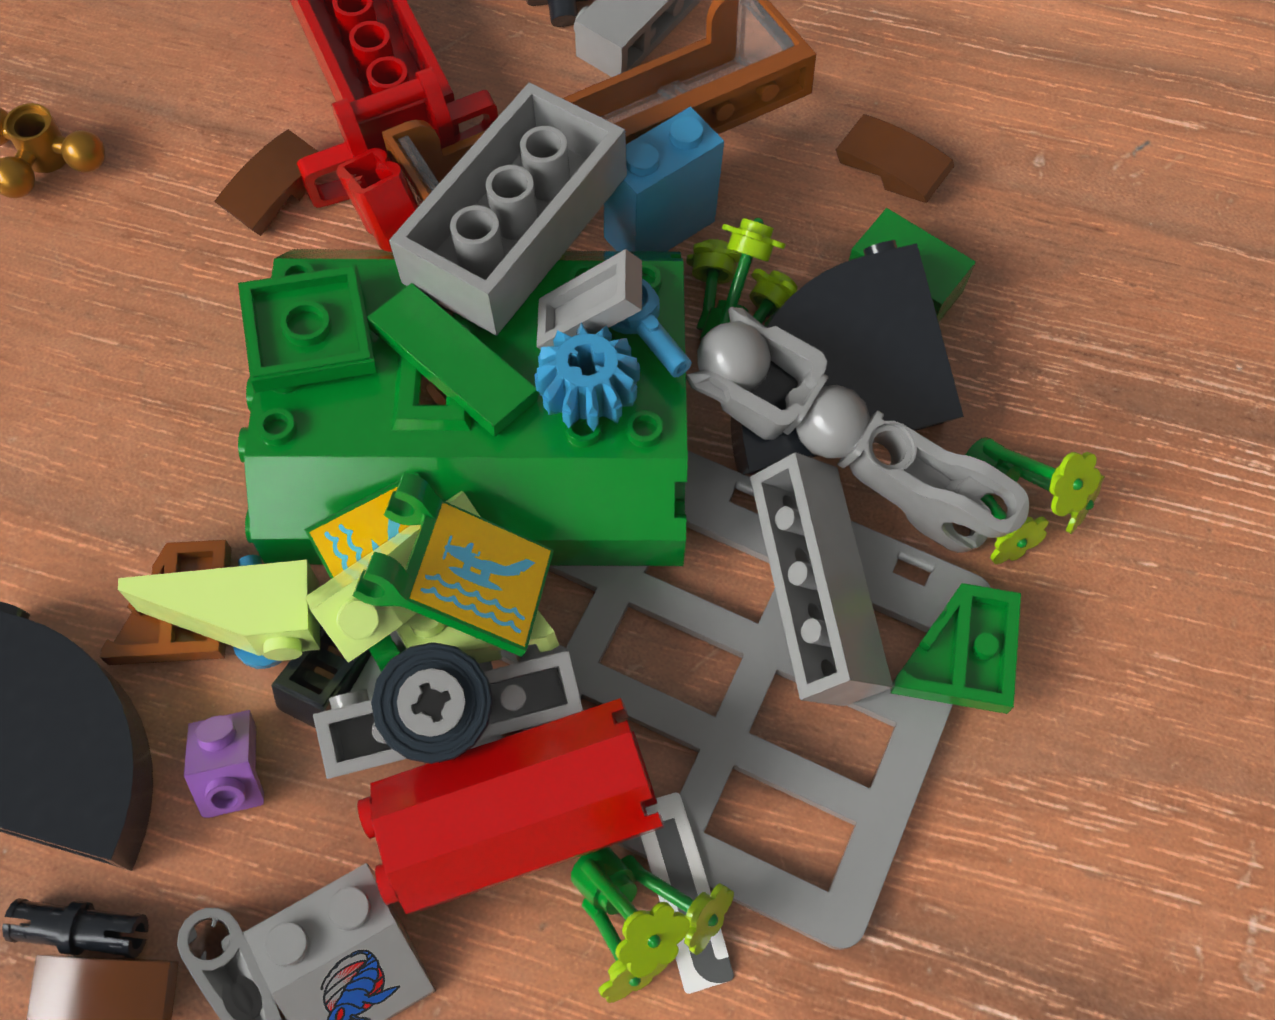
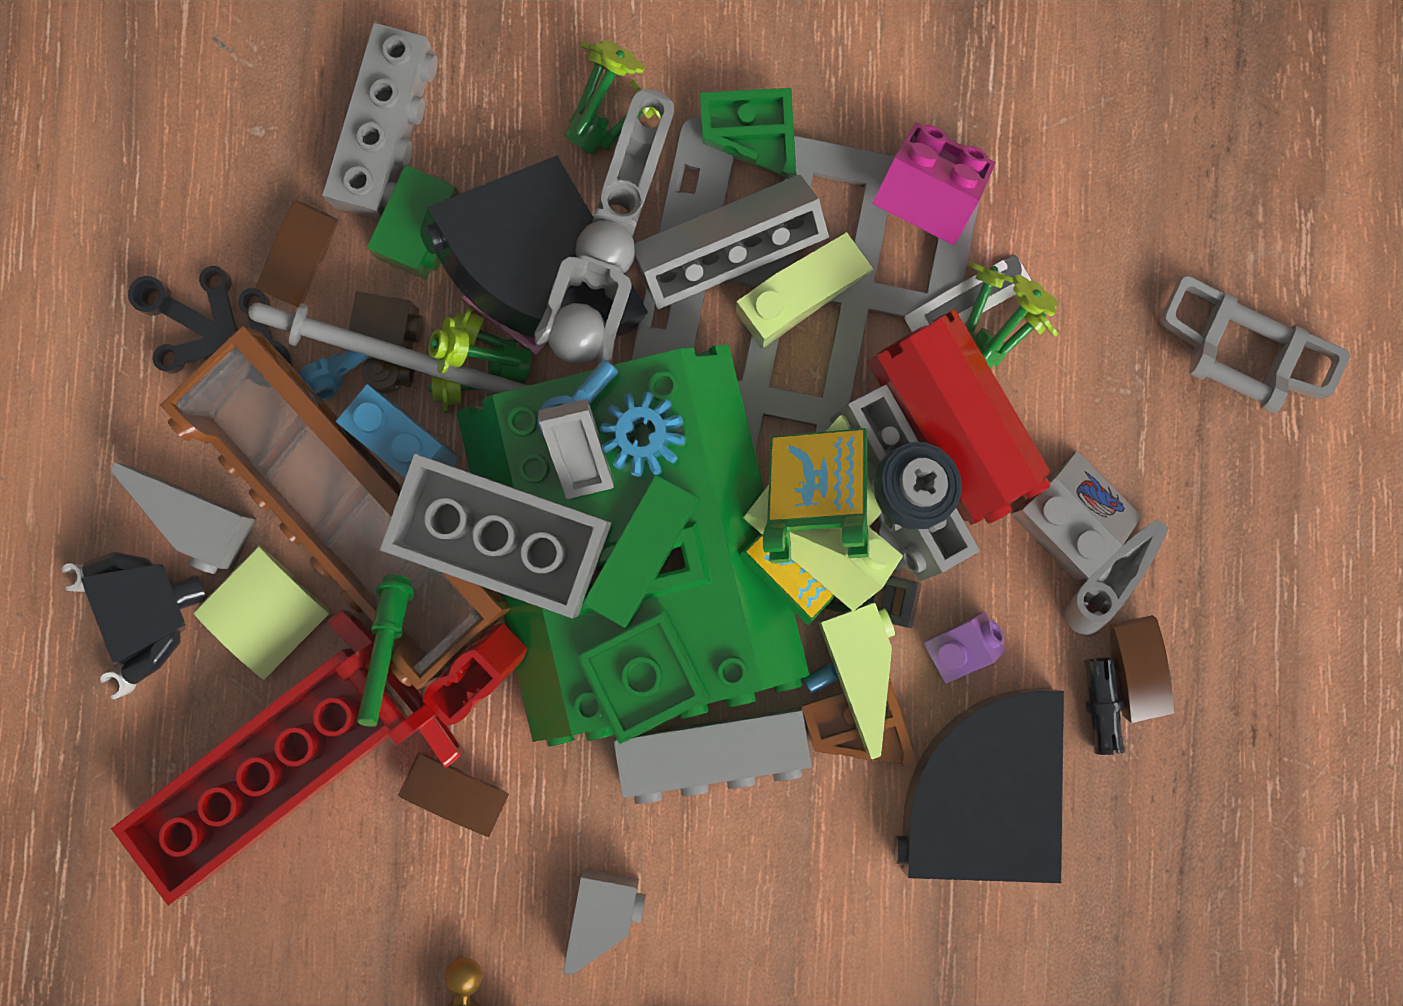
camera: 100 degrees left, 20 degrees up
(86, 285) = (601, 916): none -> light grey slope
(198, 457) = (713, 753): none -> light grey brick
(462, 129) = (388, 622): none -> green pin
(521, 51) = (261, 612): none -> yellowish green slope
(741, 660) = (801, 289): none -> yellowish green slope
(753, 156) = (327, 374): none -> dark azure plate
(797, 215) = (390, 321): none -> dark brown brick
(807, 111) = (301, 325): none -> light grey bar
(853, 869) = (935, 182): none -> dark pink slope
(871, 38) = (215, 331): none -> black plant
(1038, 260) = (380, 121): none -> light grey brick

